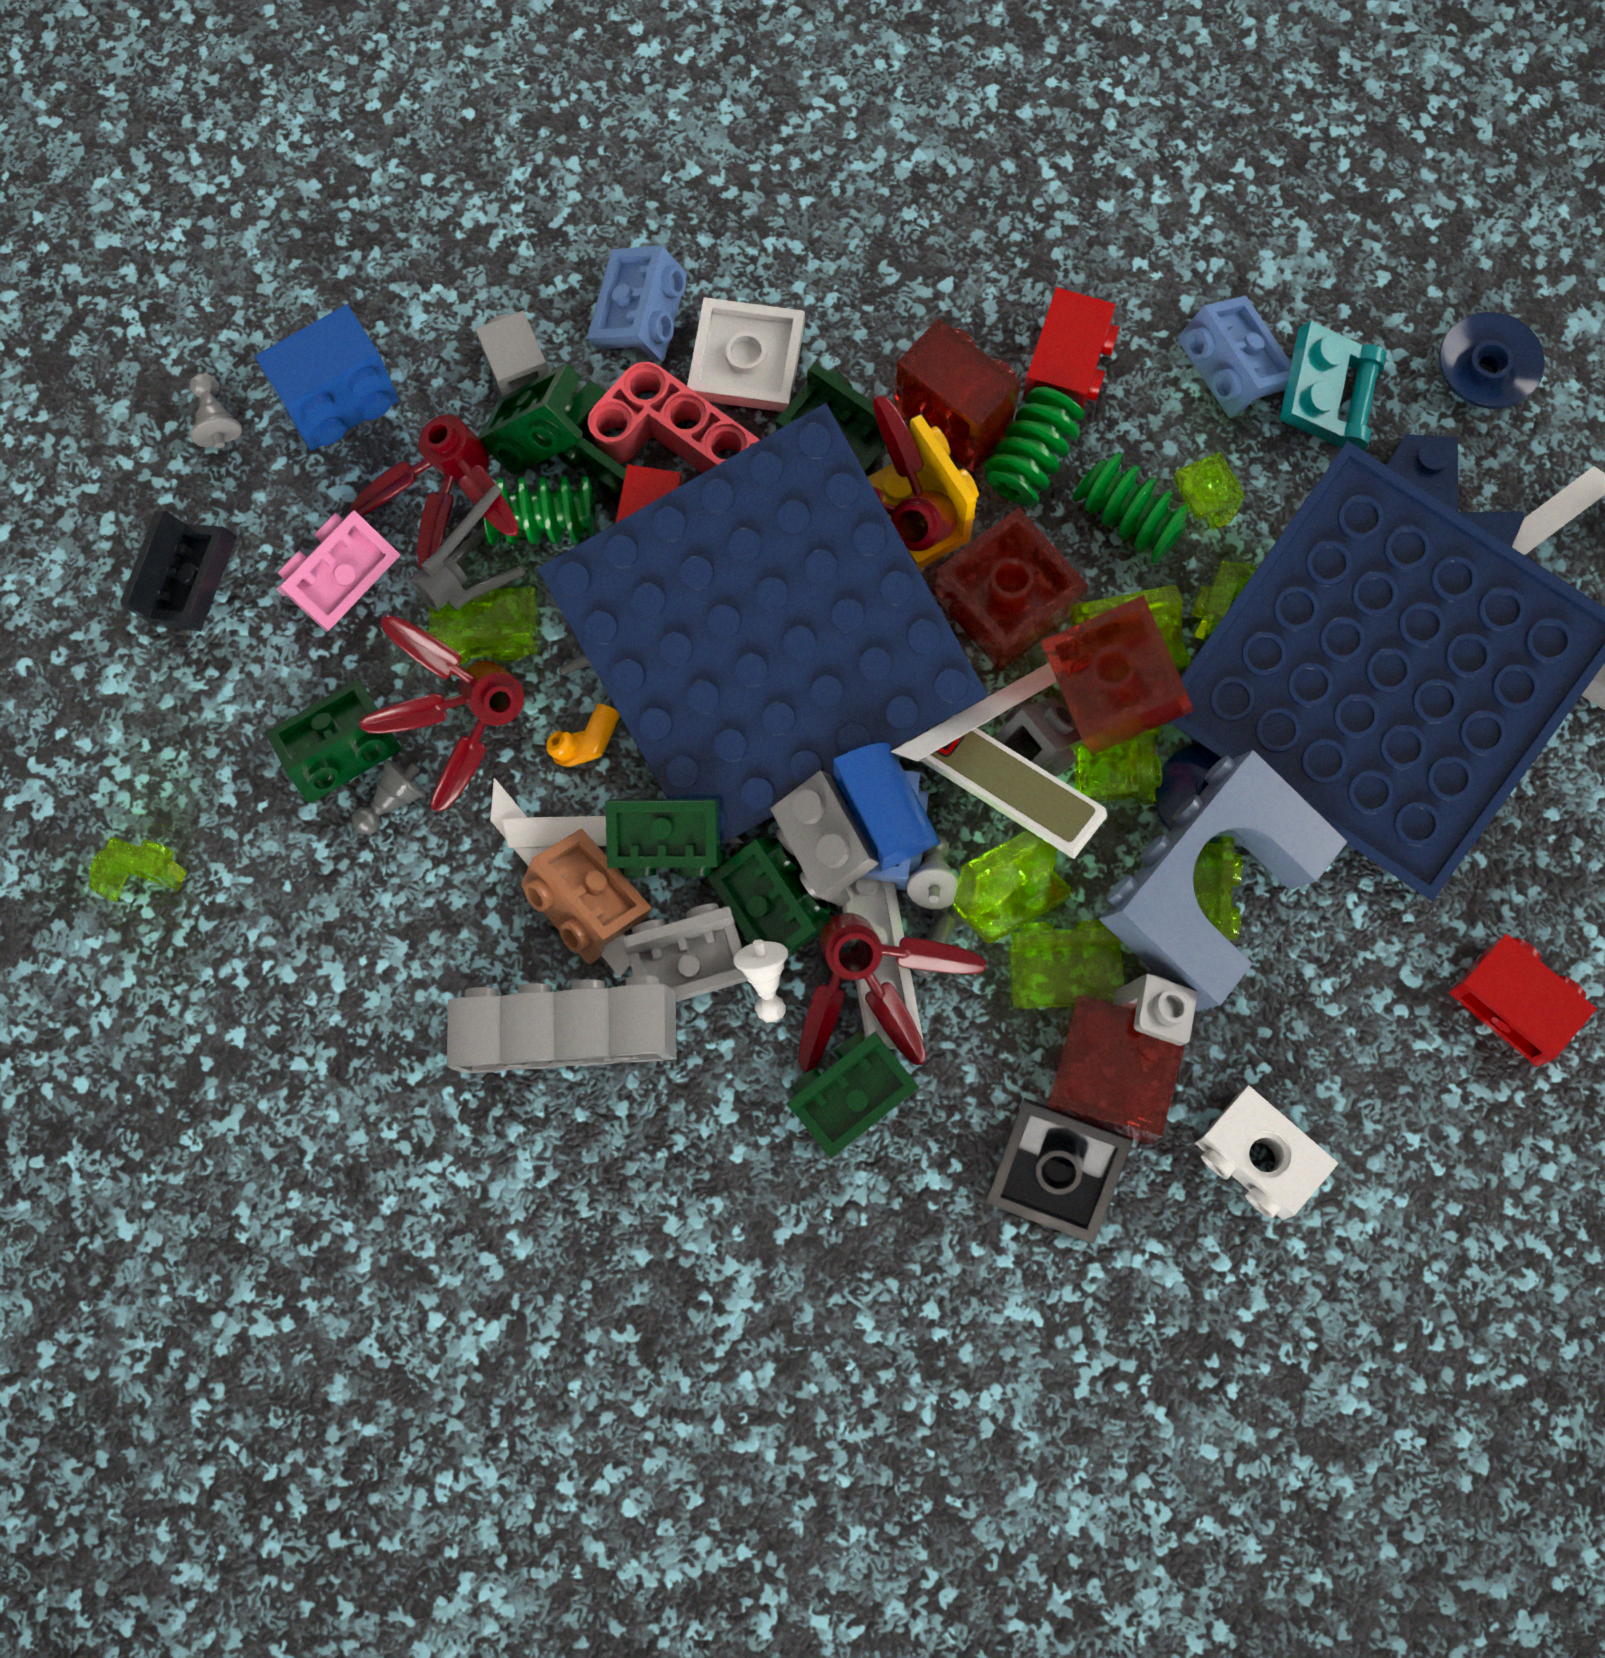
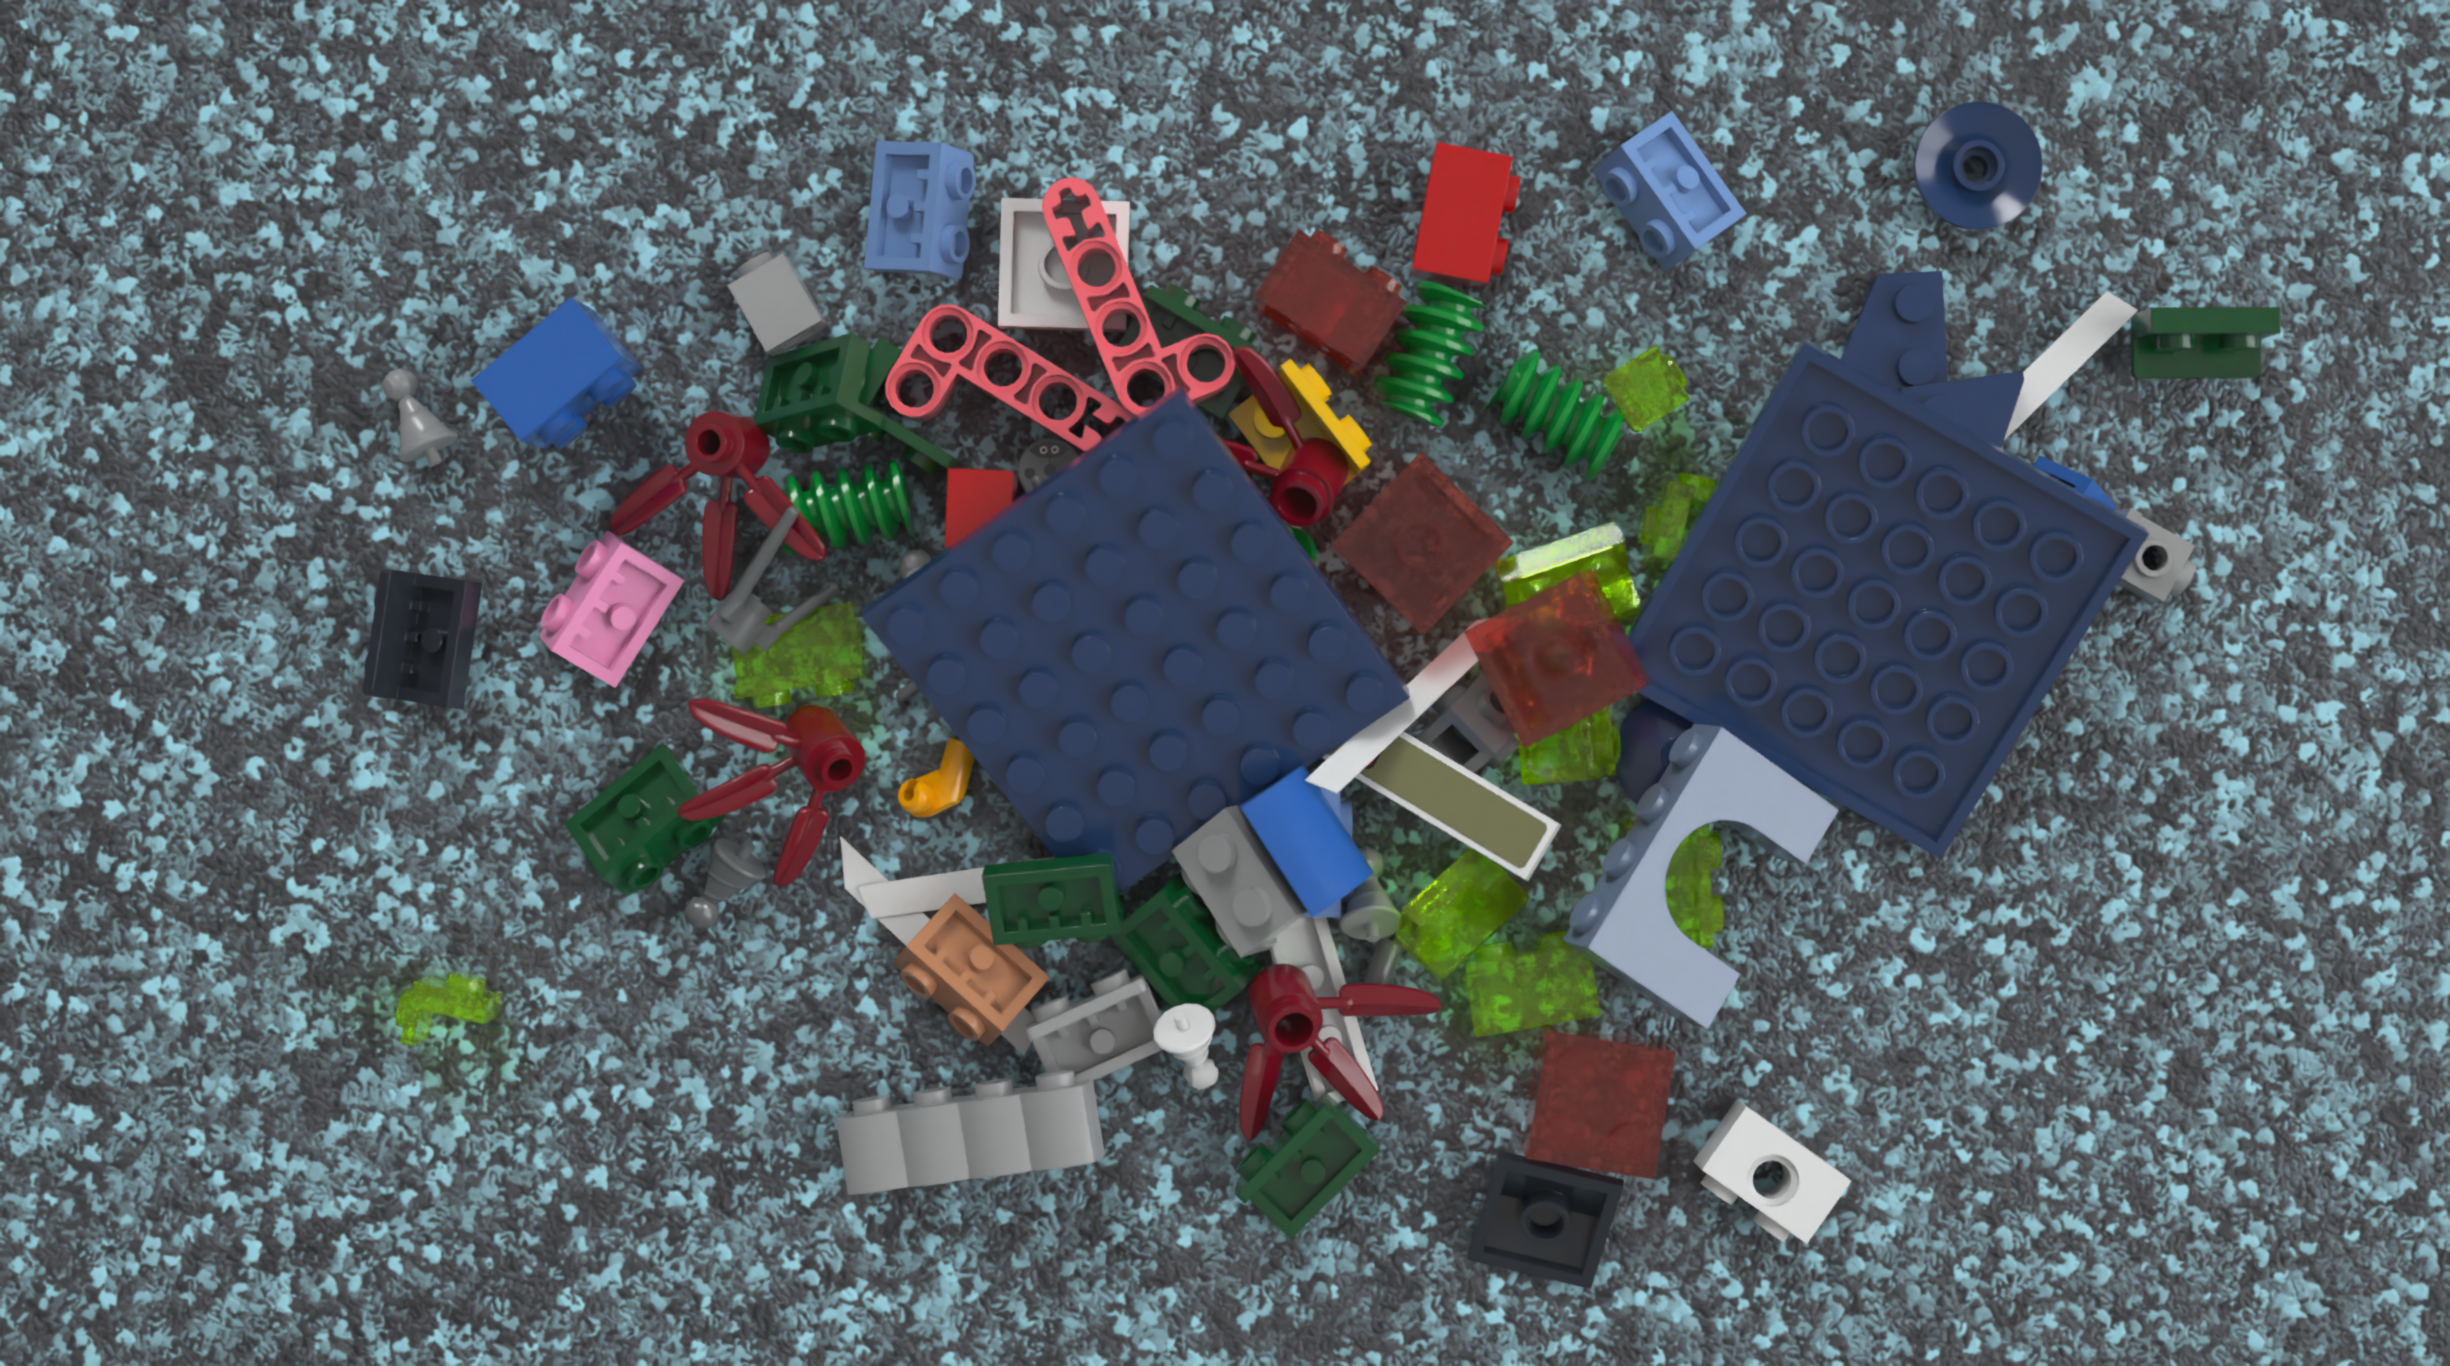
camera: 10 degrees left, 15 degrees up
(786, 367) = (1122, 297): none -> coral beam
(1160, 1006) = (1644, 1038): light grey bracket -> none
(1318, 383) = (1769, 217): teal plate -> none
(1524, 999) = (2049, 961): red brick -> none

